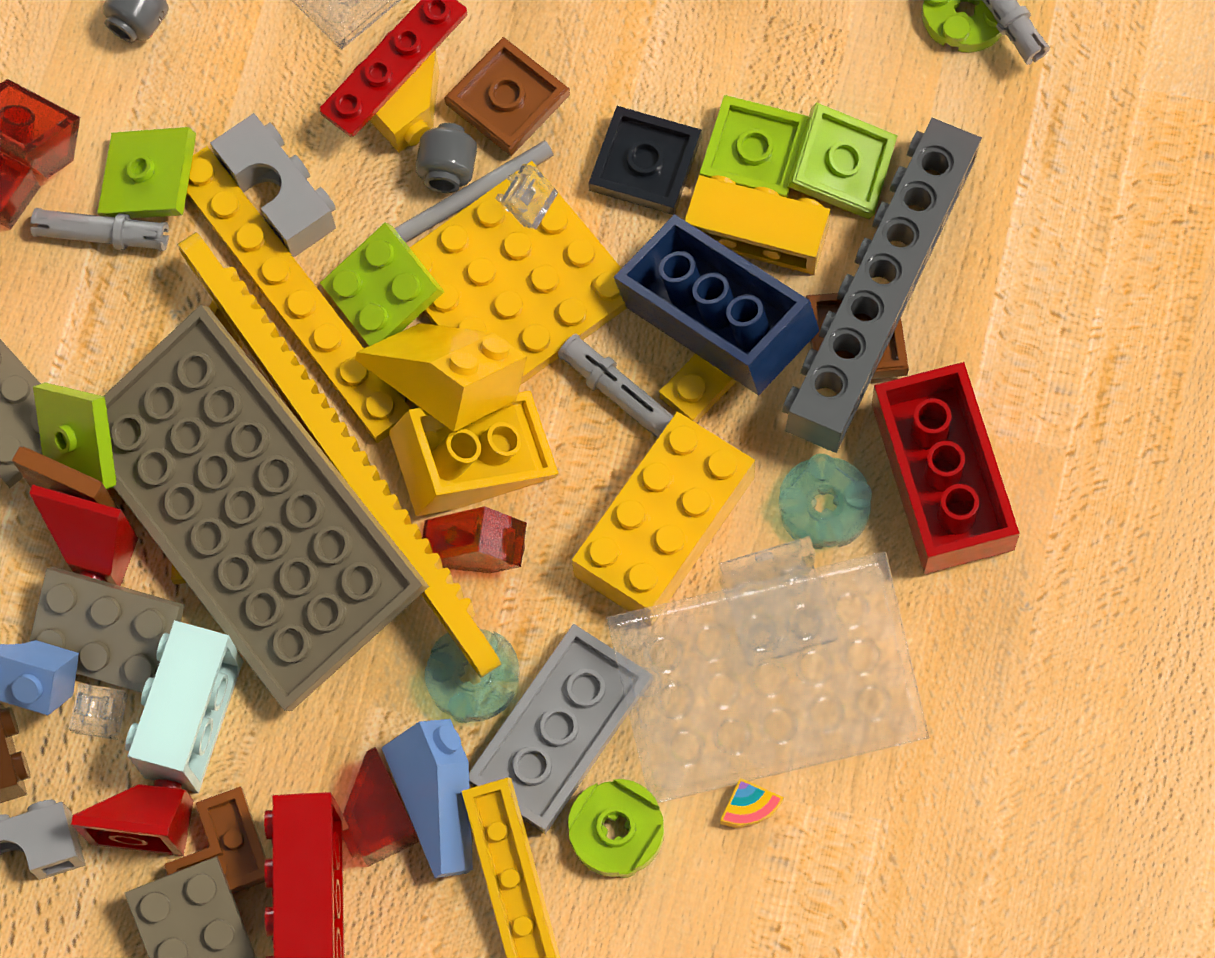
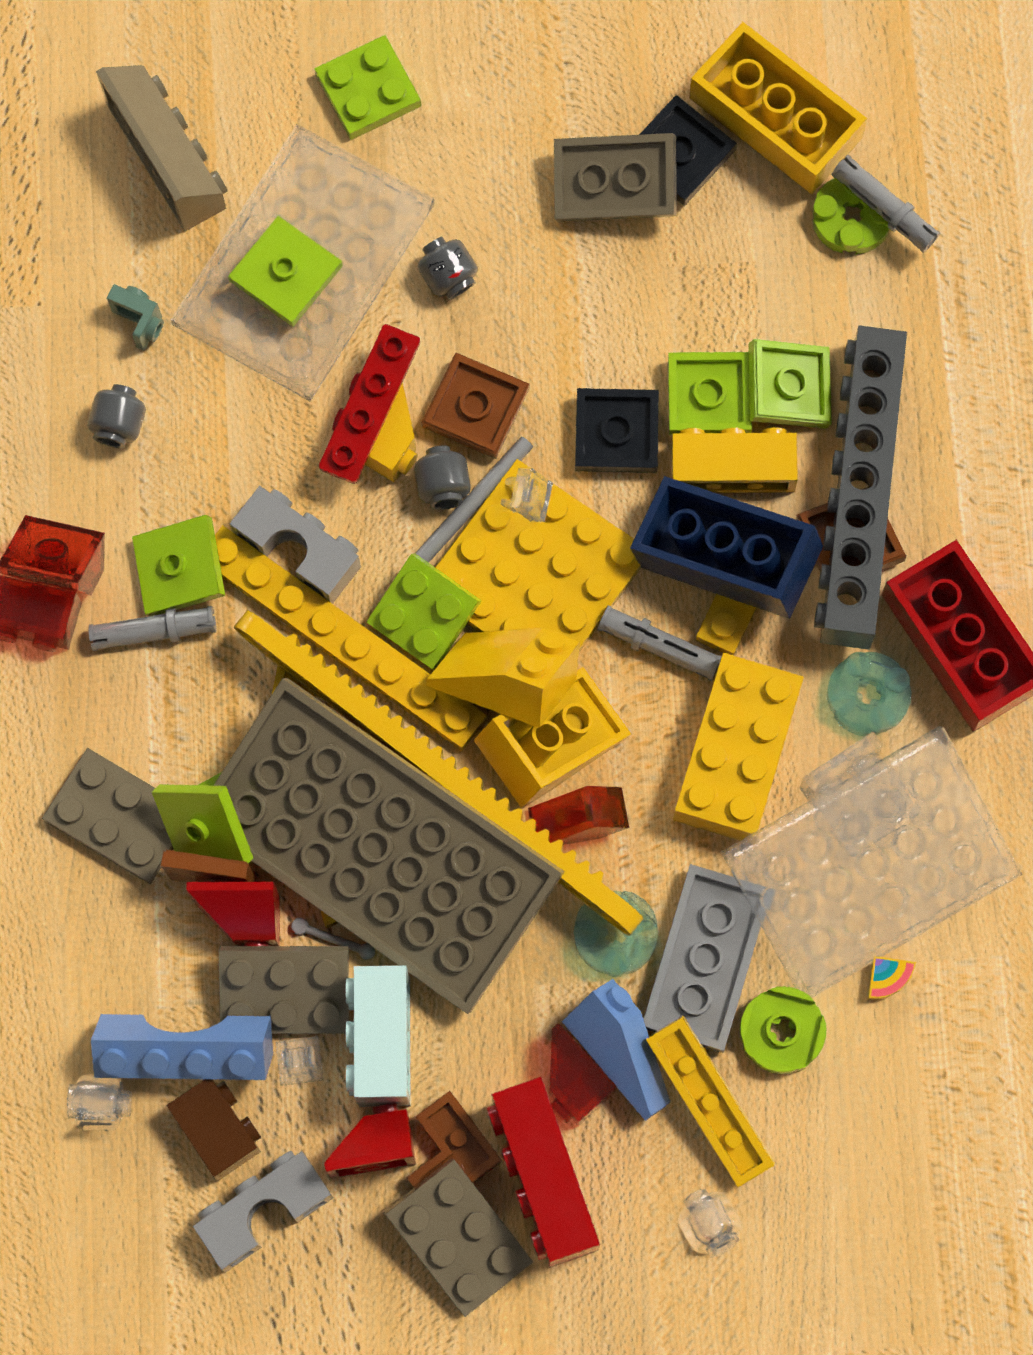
camera: 20 degrees left, 5 degrees up
(148, 575) = (301, 927): none -> light grey hinge

